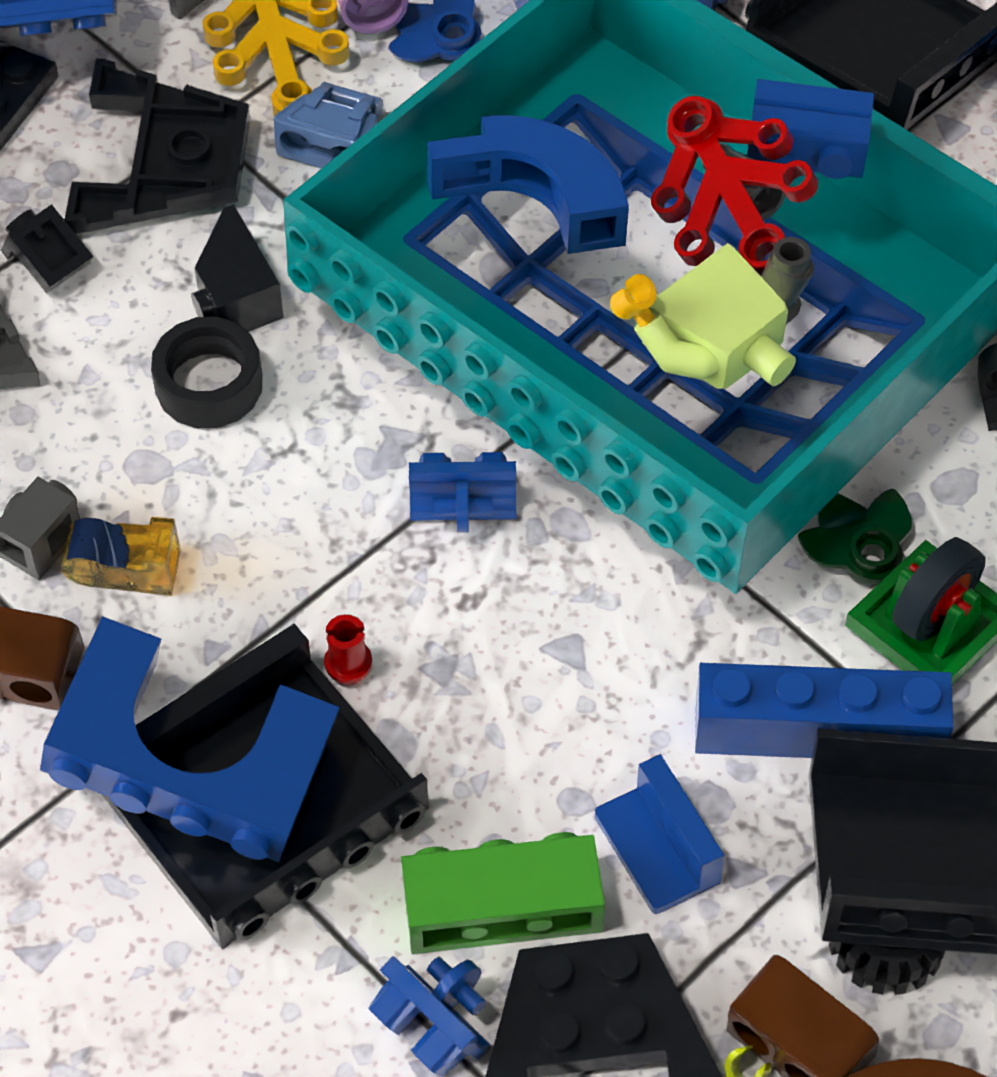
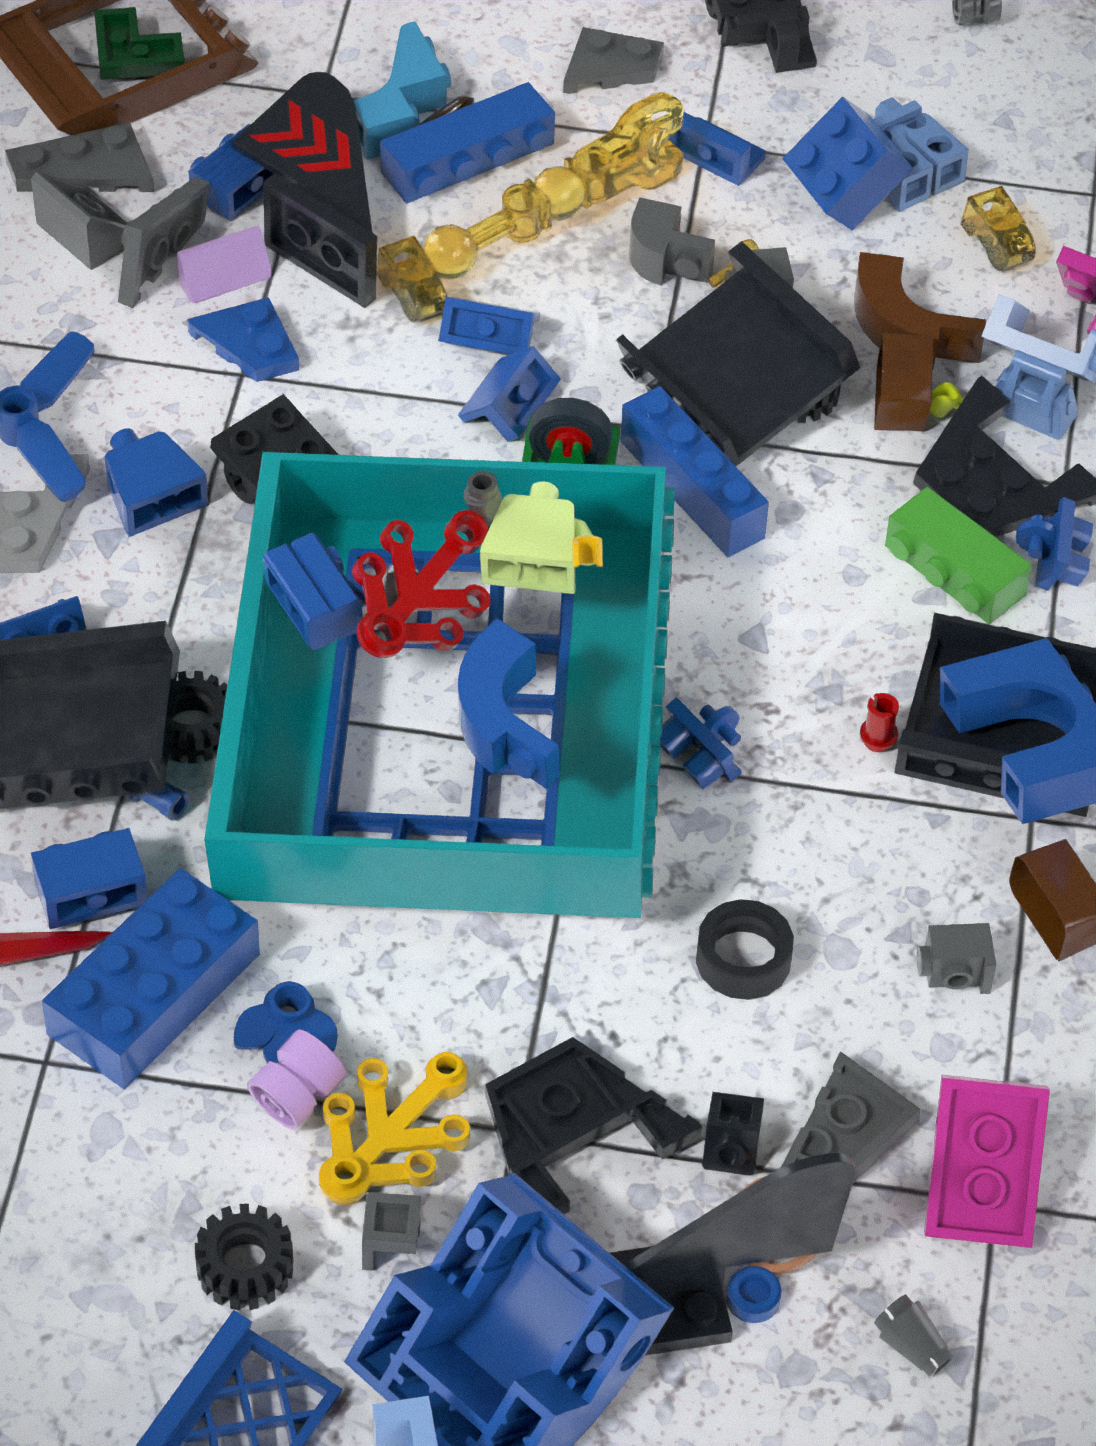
camera: 130 degrees left, 5 degrees down
(123, 555) = (925, 890): clear yellow leg -> none
(236, 277) = (653, 985): black slope -> none
(324, 123) = (461, 1018): medium blue piece -> none
(661, 838) = (843, 512): blue panel -> none

